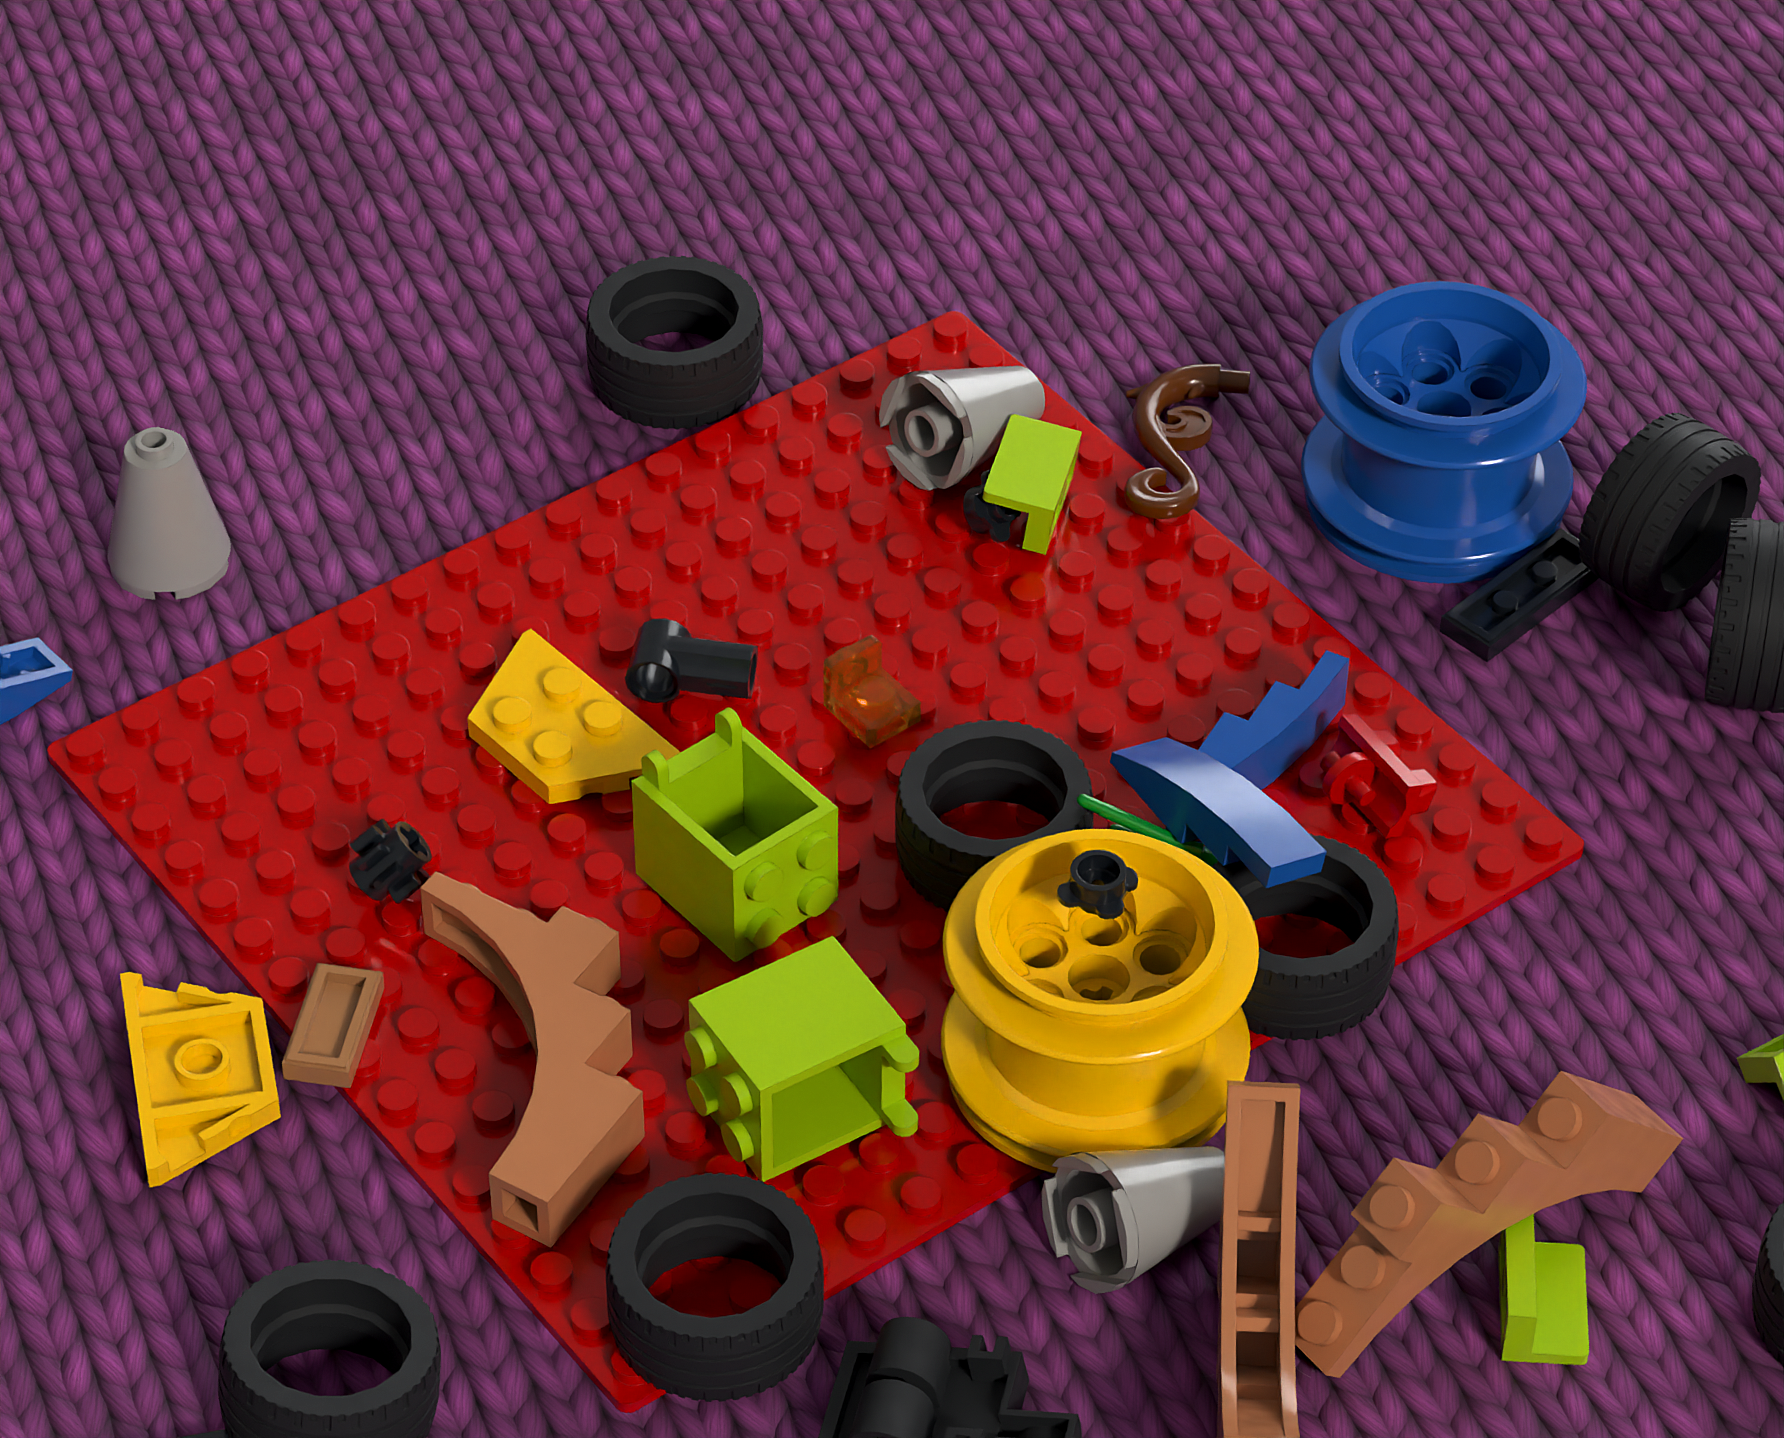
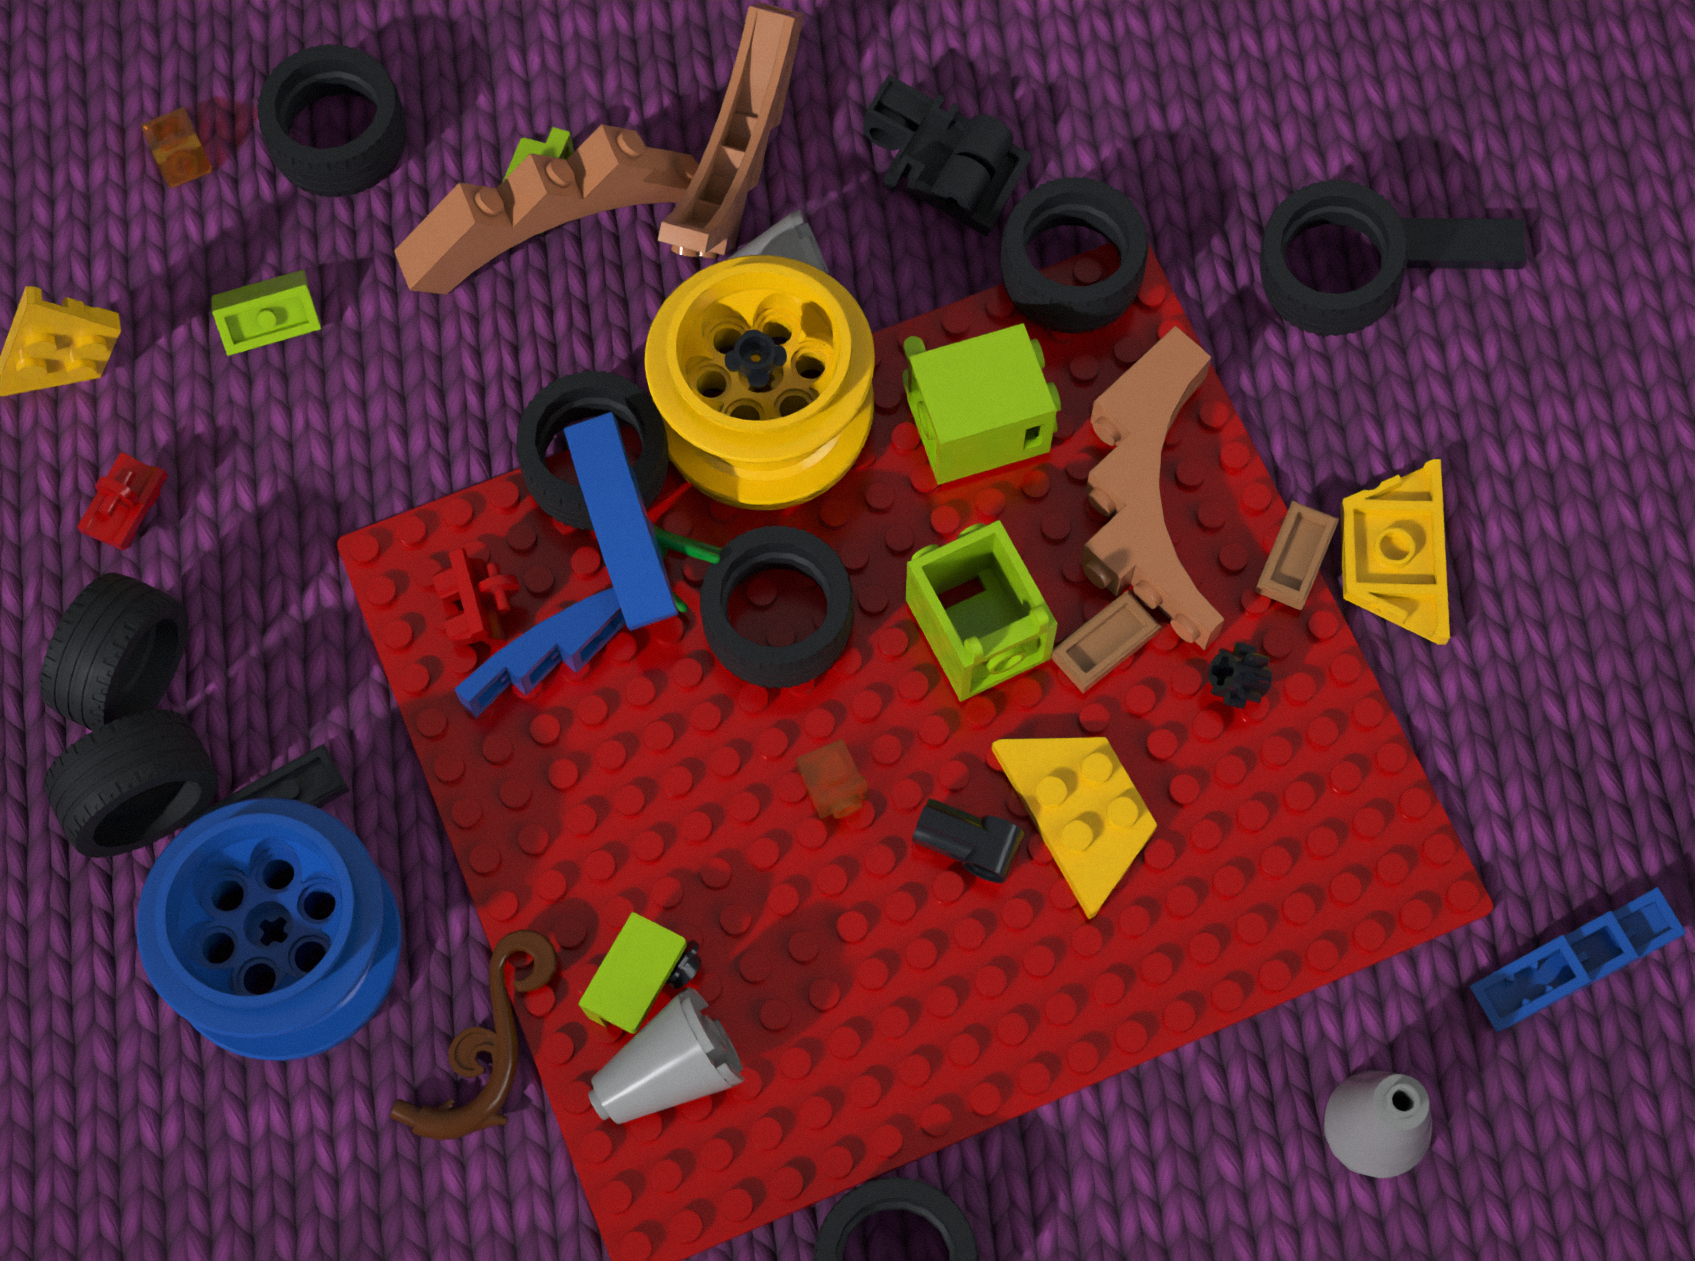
camera: 165 degrees left, 25 degrees up
(579, 878) = (1105, 641): none -> medium nougat tile

